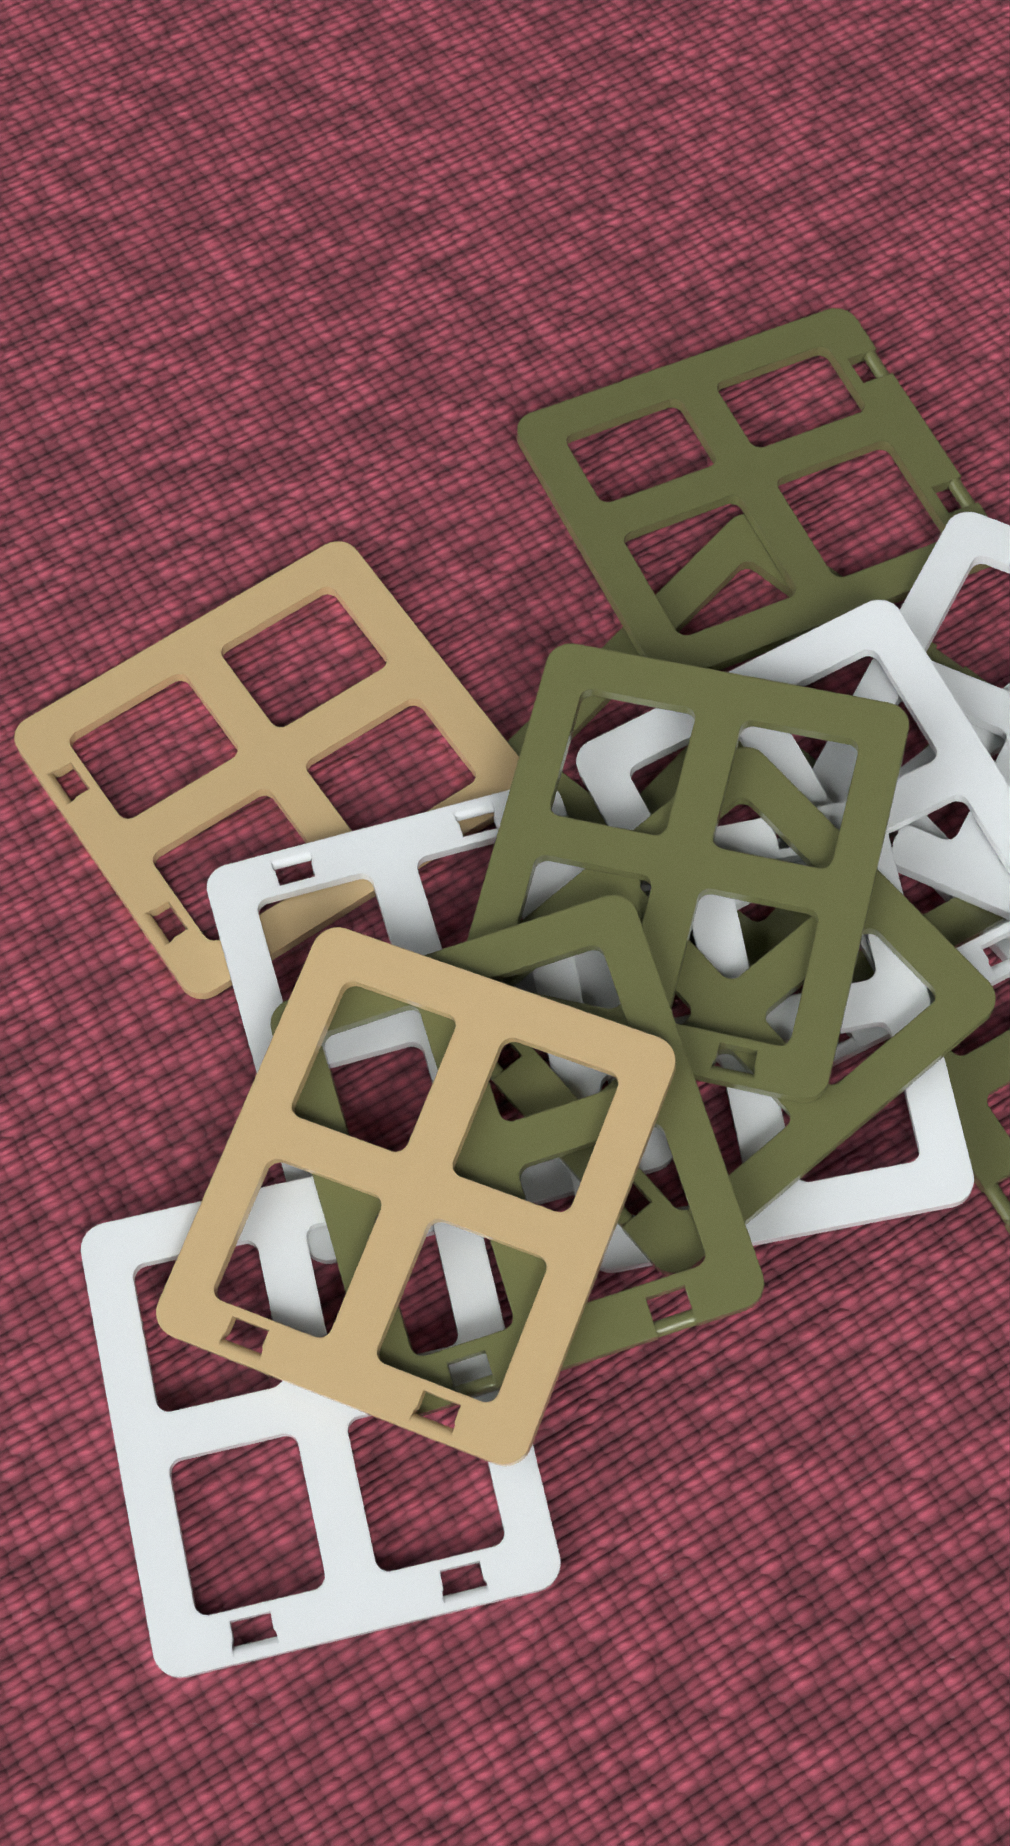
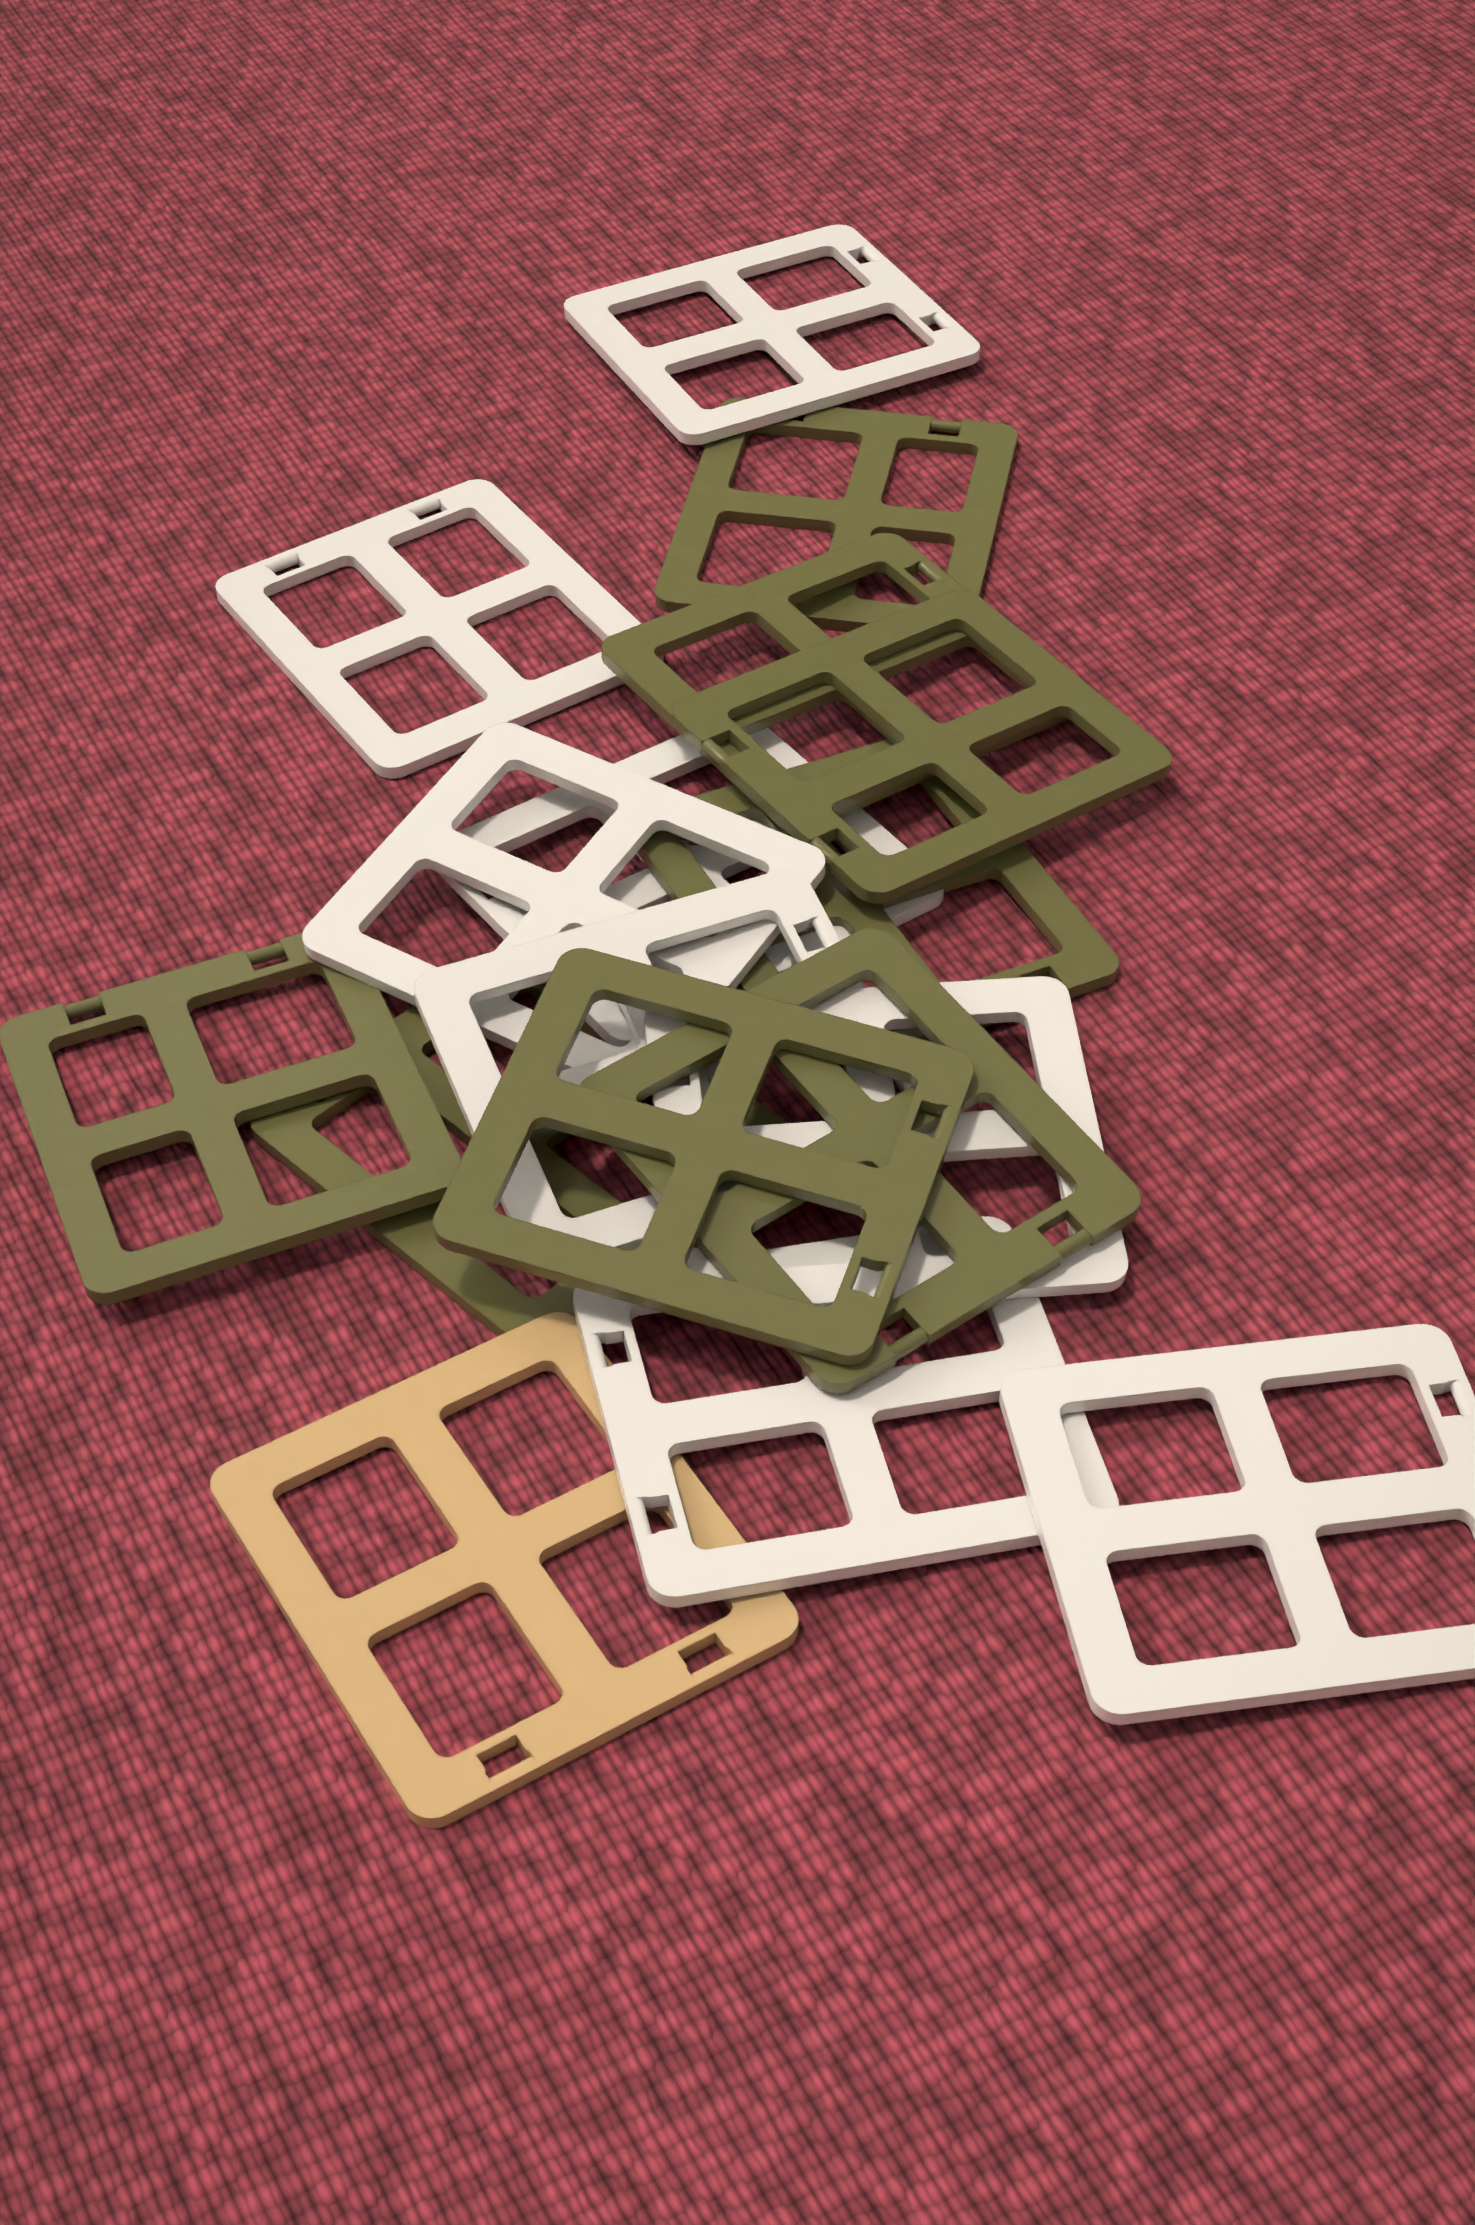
camera: 85 degrees left, 20 degrees down
(419, 1191) = (1057, 1387): tan window -> none
(502, 1149) = (1017, 1323): olive window -> none

